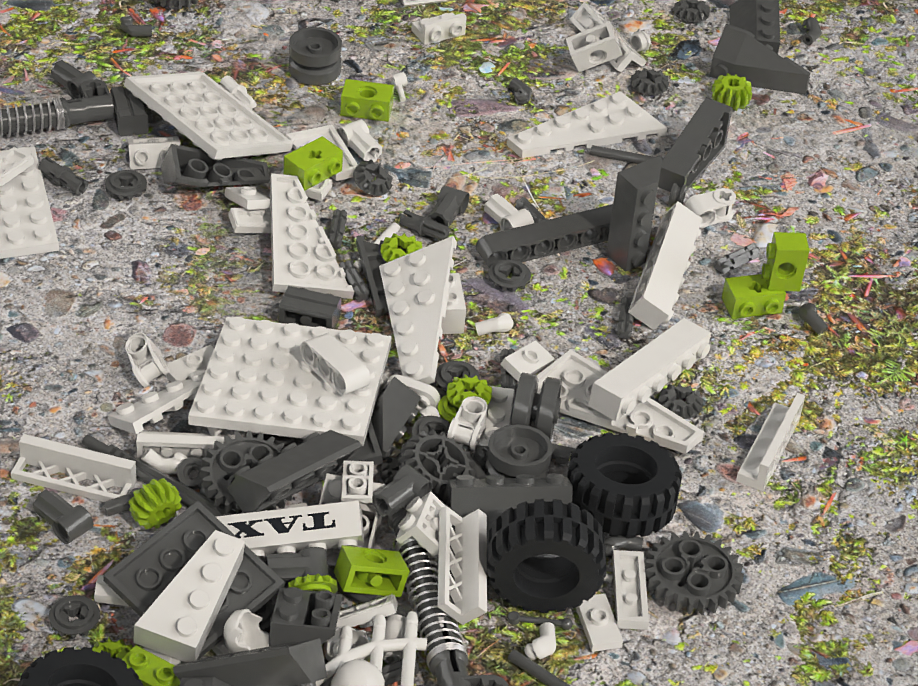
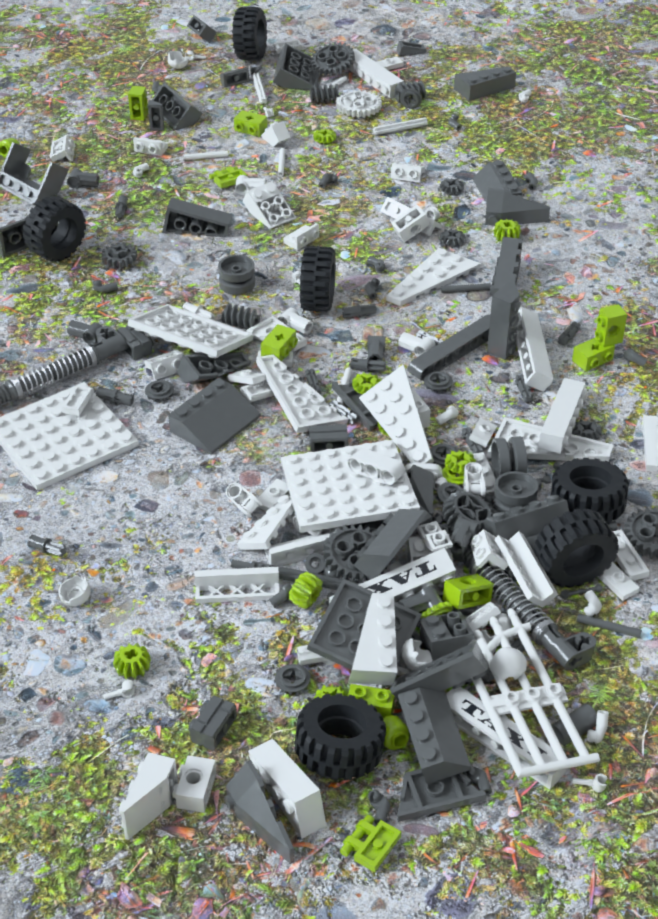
camera: 15 degrees left, 0 degrees up
(65, 519) = (252, 619): dark grey piece -> none
(164, 465) = (296, 563): white arm -> none
(173, 237) = (213, 416): none -> dark grey slope
(287, 113) = (241, 317): none -> dark grey piece
(363, 174) = (311, 341): dark grey gear -> none
(367, 100) = (283, 294): lime brick -> none
(410, 88) = (317, 278): none -> black tyre
(457, 148) = (359, 310): none -> dark grey axle
(494, 121) = (371, 287): none -> dark grey arm
(711, 207) = (538, 303): white piece -> none

